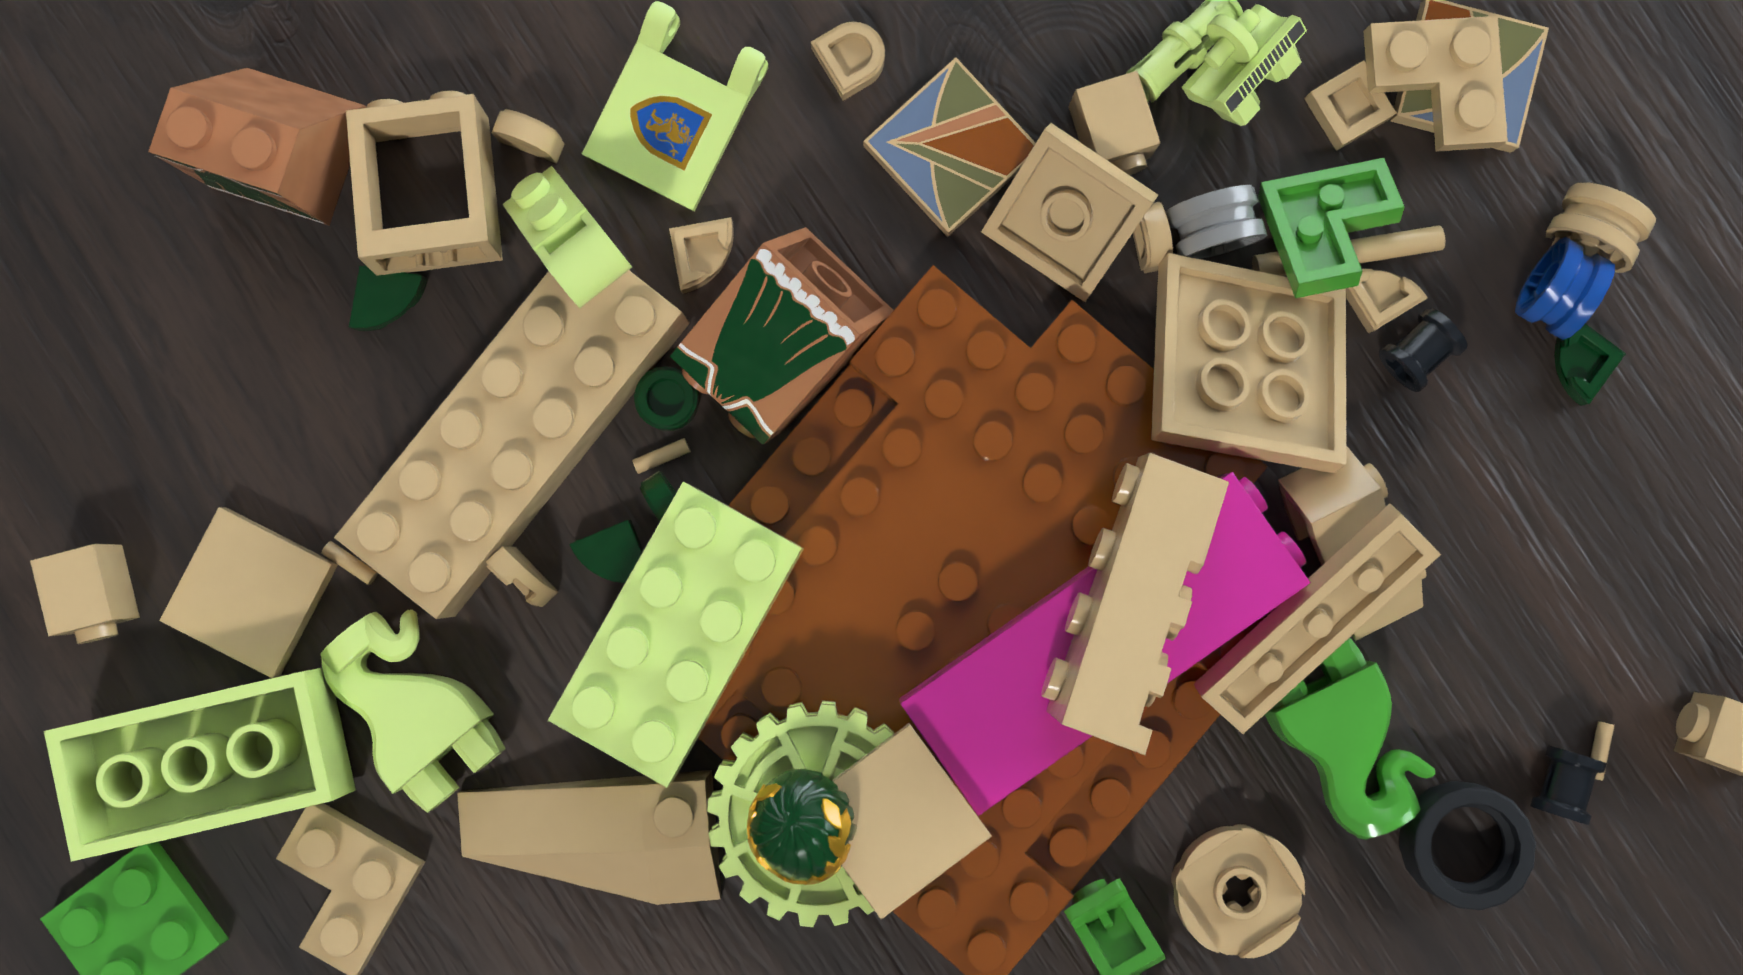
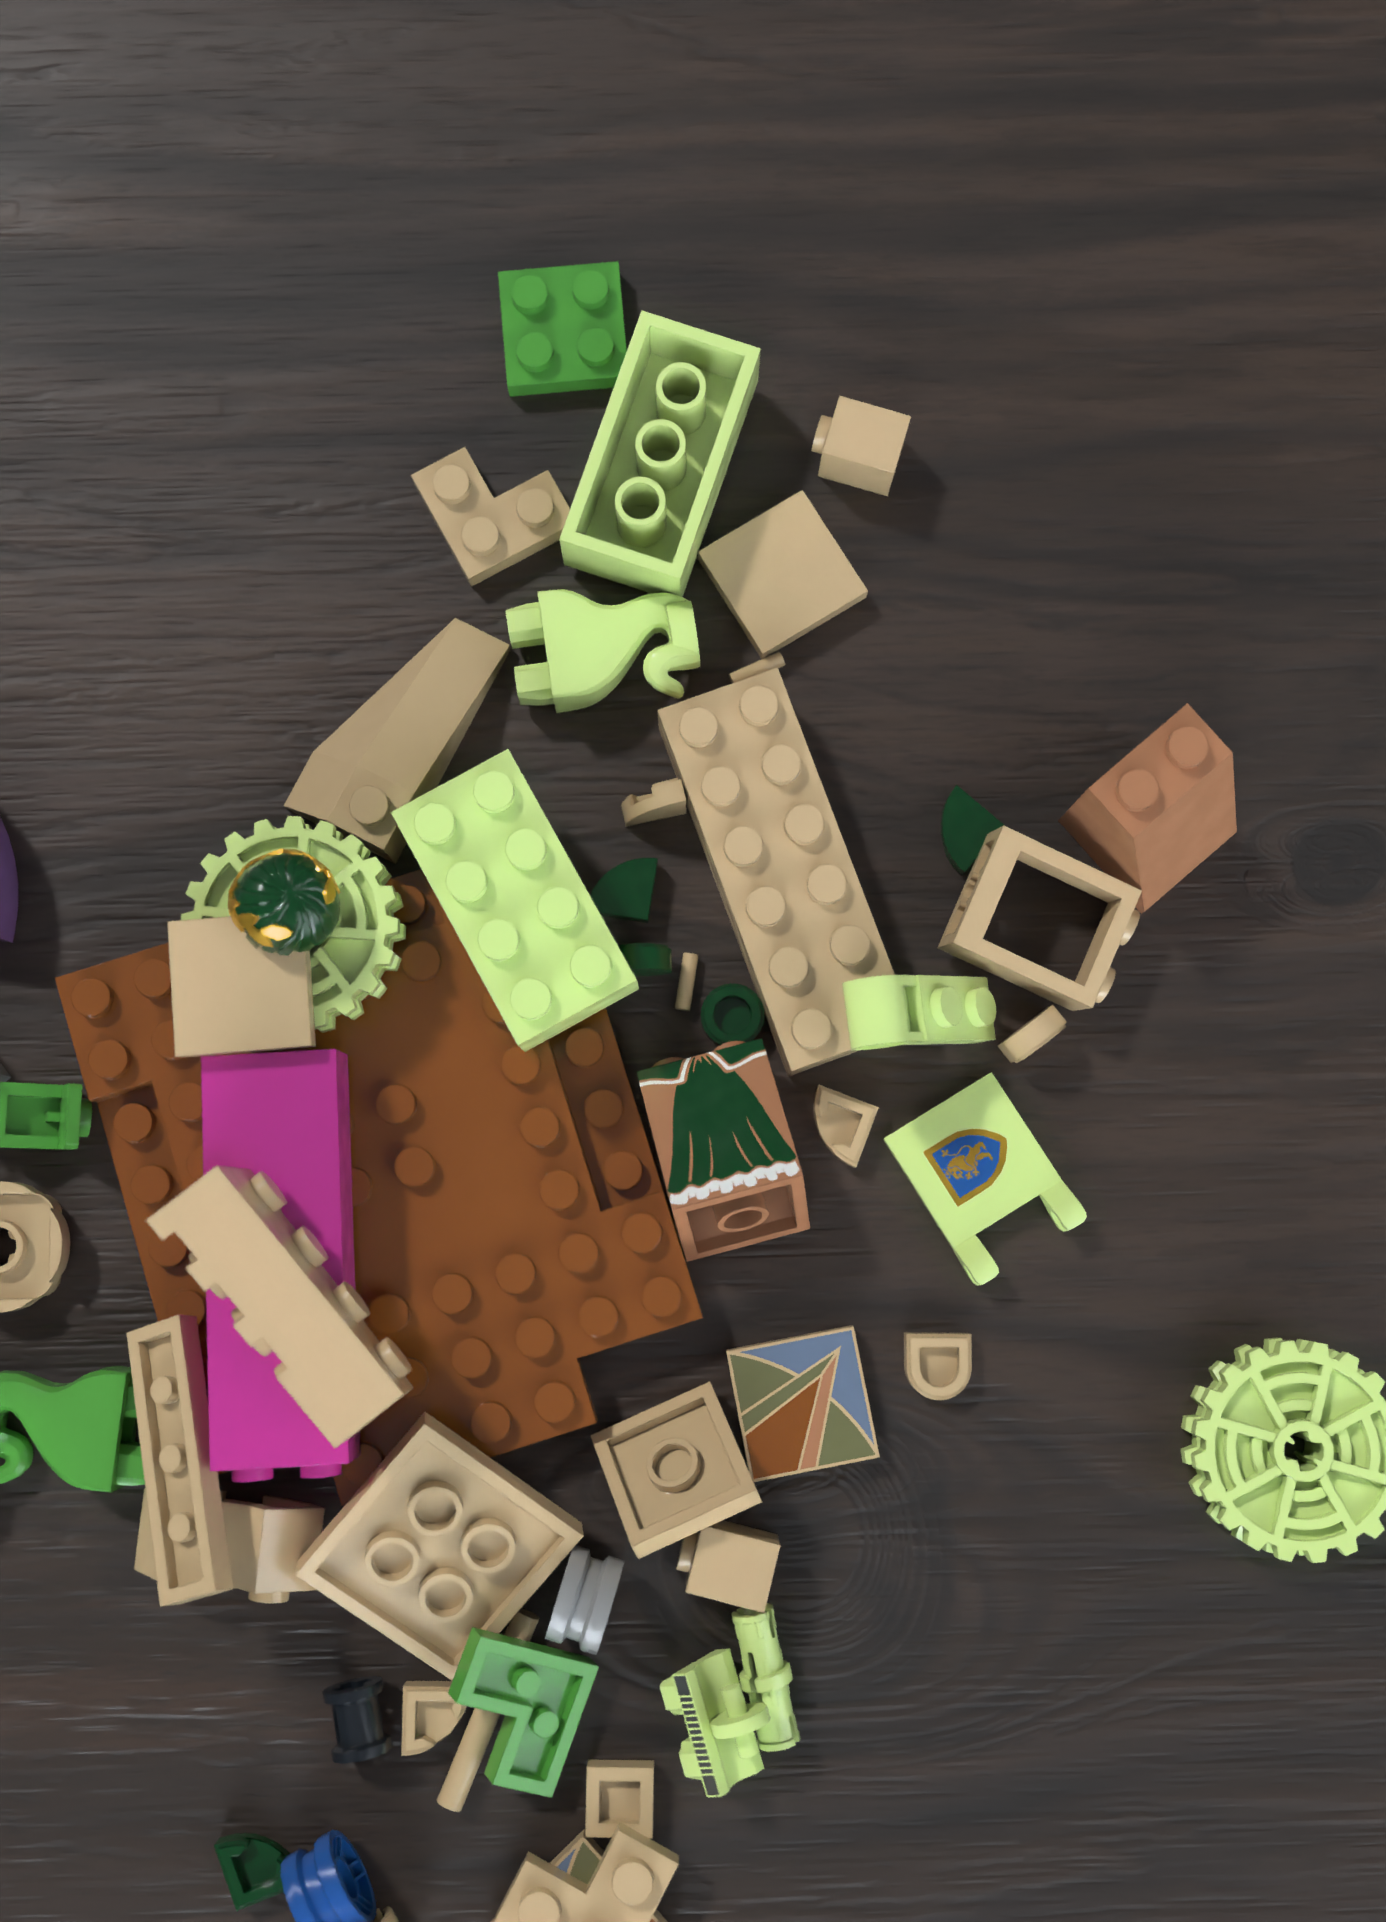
camera: 125 degrees right, 5 degrees down
(1153, 238) = (606, 1533): tan tile -> none

